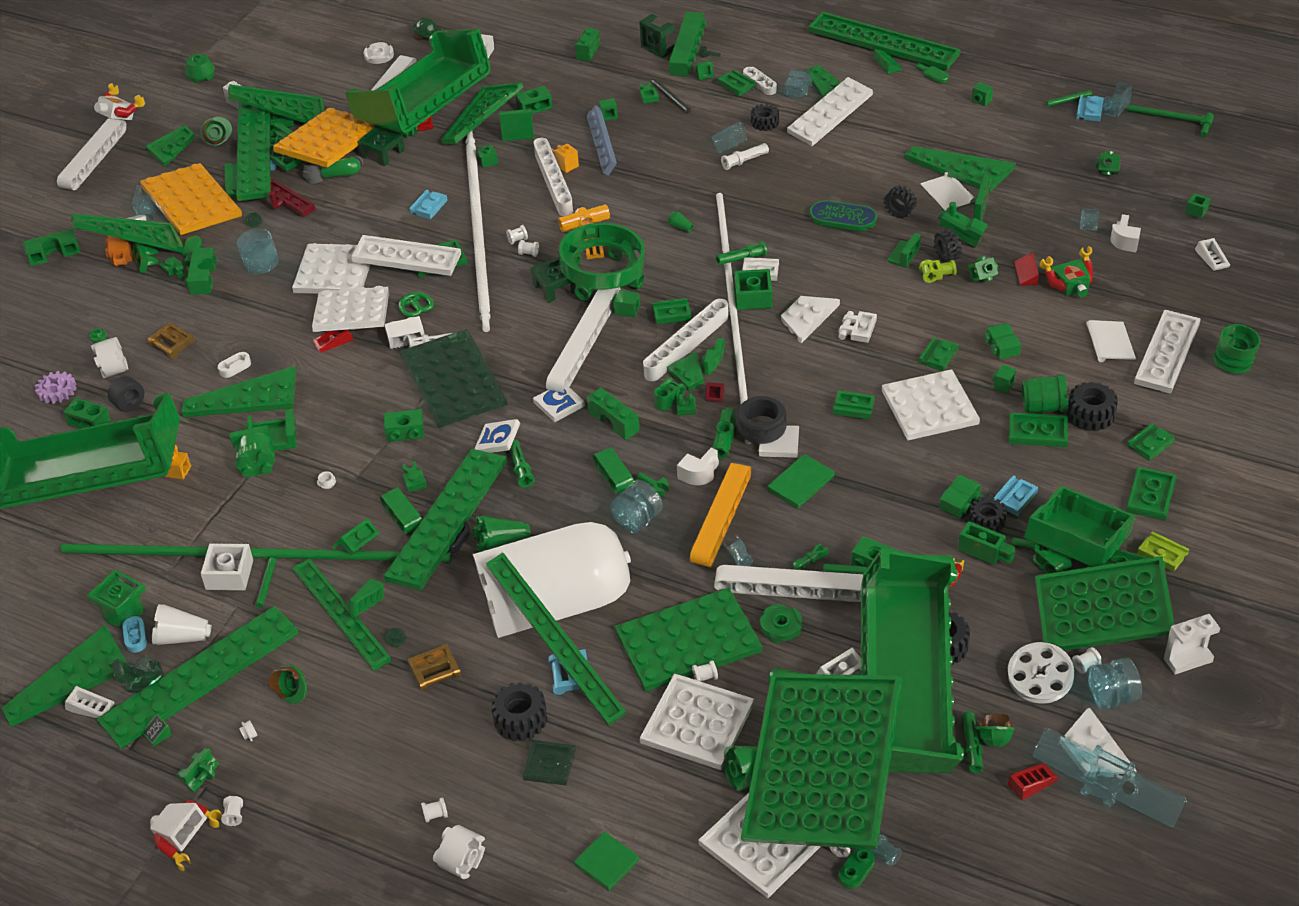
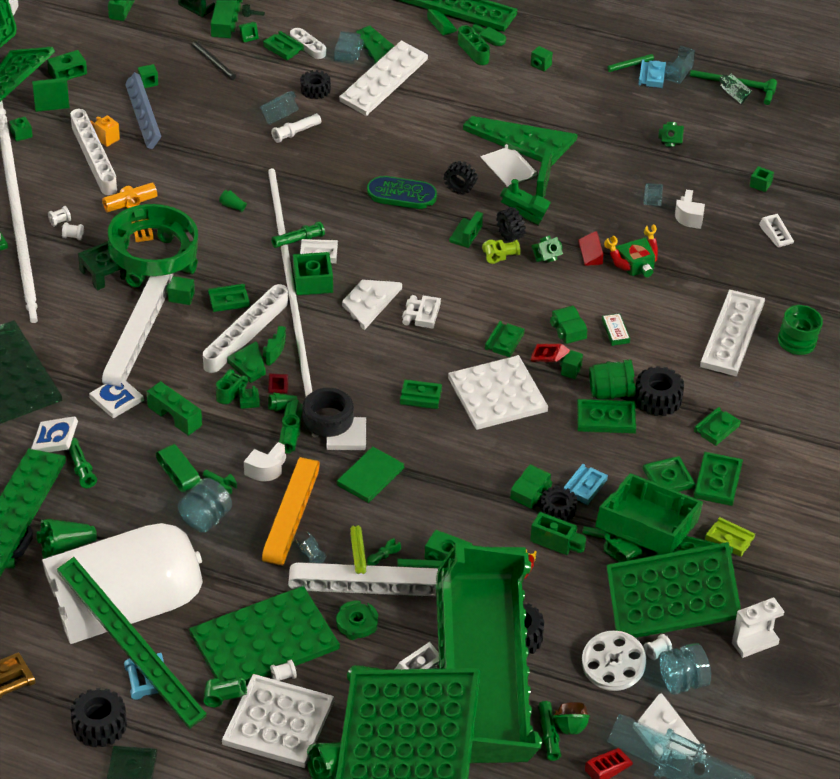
camera: 10 degrees left, 0 degrees up
(640, 689) = (217, 691): none -> green piece
(648, 94) = (190, 58): green plate -> none
(714, 409) = (279, 401): none -> green cone
(785, 554) = (358, 549): none -> lime axle
(917, 82) = (473, 45): none -> green beam
(982, 367) = (549, 352): none -> red slope
(1049, 346) = (615, 329): none -> tile
(1102, 488) = (670, 474): none -> green tile
(1110, 340) = (676, 322): white piece -> none
(1171, 120) = (735, 87): none -> clear green hinge

